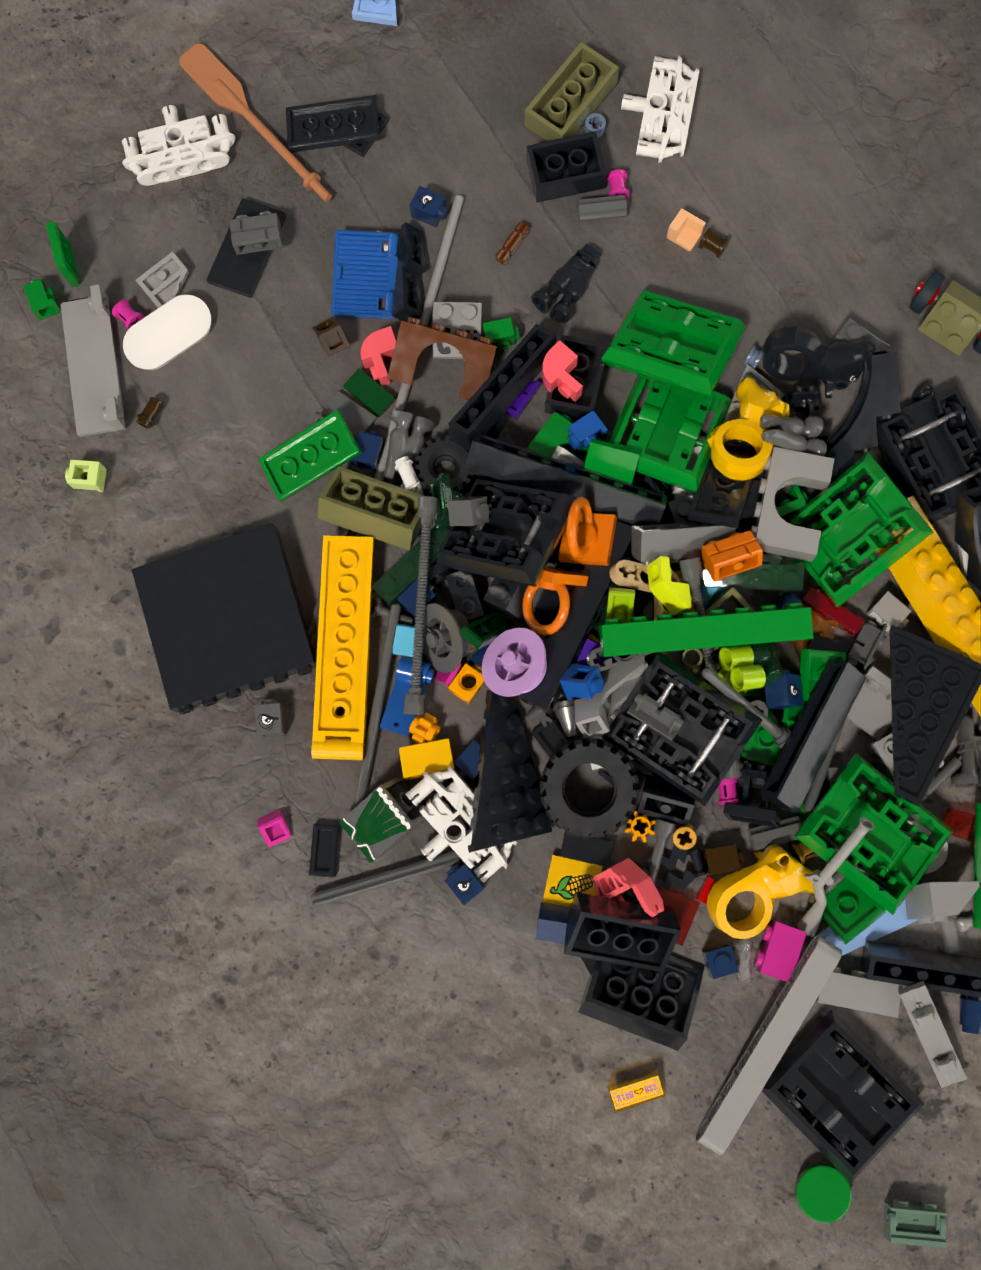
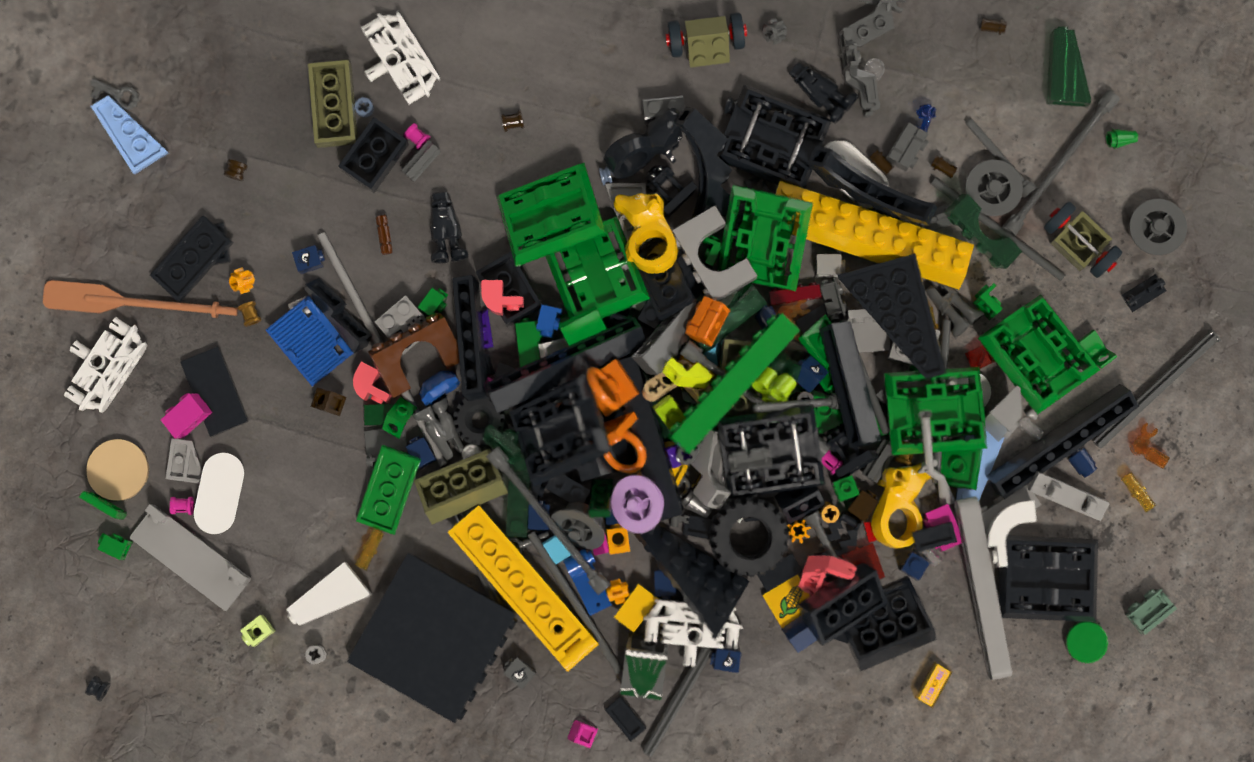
camera: 45 degrees left, 5 degrees up
(106, 241) = (117, 470): none -> tan tile
(107, 541) = (310, 658): none -> light grey bush
(150, 412) = (258, 554): dark brown pin -> none
(177, 501) = (332, 593): none -> white slope
(202, 243) = (185, 415): none -> dark pink brick
(246, 493) = (369, 549): none -> clear yellow pin
(256, 233) = (215, 377): dark grey brick -> none
(336, 208) = (249, 313): none -> pearl gold bush
(356, 175) = (241, 280): none -> light orange gear
(377, 401) = (399, 416): none -> green bracket
(407, 472) = (461, 445): white pin -> none
(432, 404) = (437, 385): none -> blue slope
(438, 83) = (235, 170): none -> dark brown wheel
(468, 511) = (526, 438): dark grey brick -> none
(582, 681) = (691, 475): blue brick -> none
(686, 230) = (487, 128): light nougat panel -> none
(719, 828) = (845, 488): none -> green brick
(765, 951) = (934, 536): none -> black tile
(794, 433) = (673, 212): dark grey piece -> none
(842, 1001) = (1002, 523): none -> white arch

